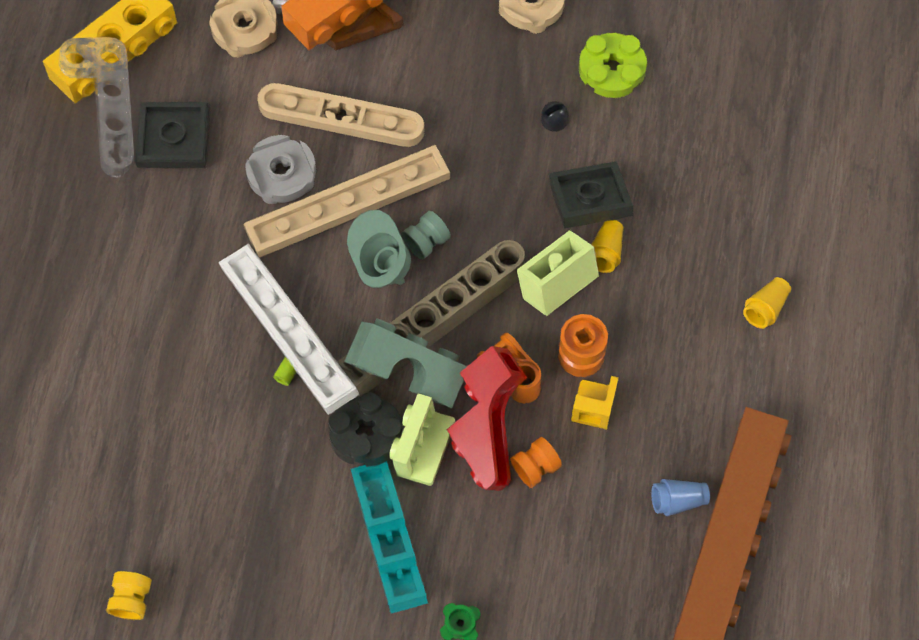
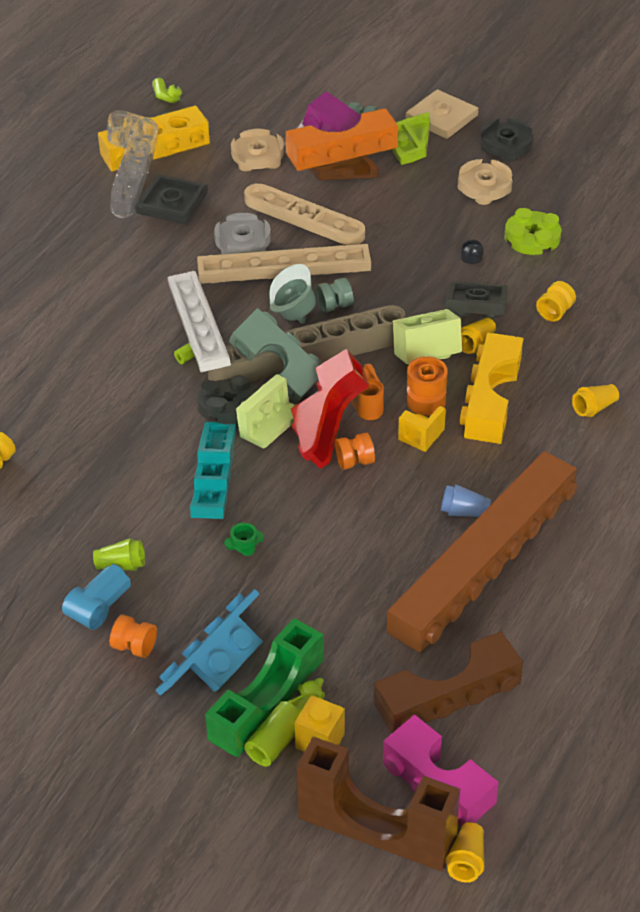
camera: 20 degrees right, 20 degrees down
(659, 362) = (487, 411): none -> yellow arch
(679, 165) = (556, 301): none -> yellow wheel

